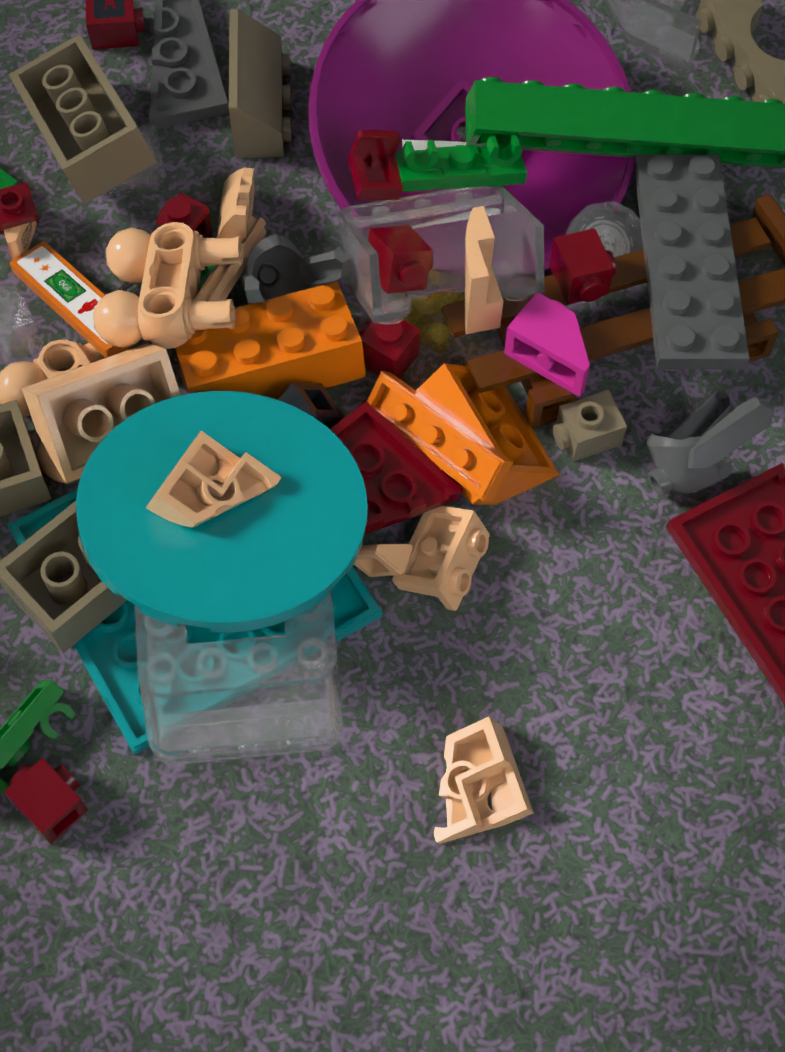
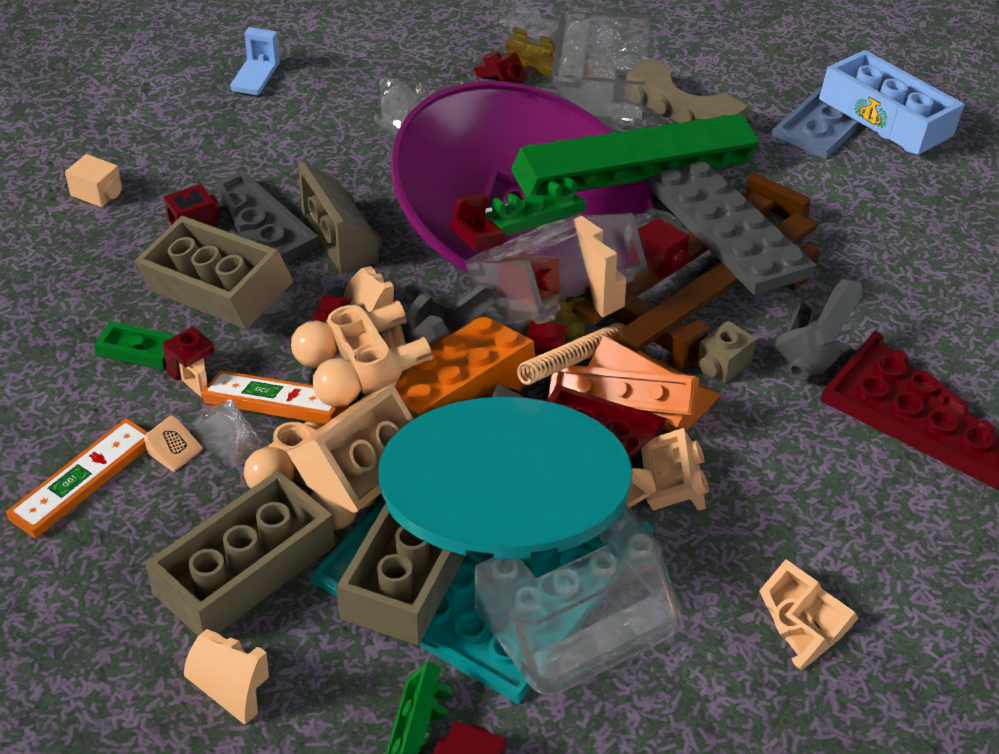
camera: 25 degrees left, 20 degrees down
(209, 483) = (486, 457): light nougat slope -> none
(401, 360) = (562, 351): none -> light nougat piece
(550, 343) = (676, 298): dark pink slope -> none

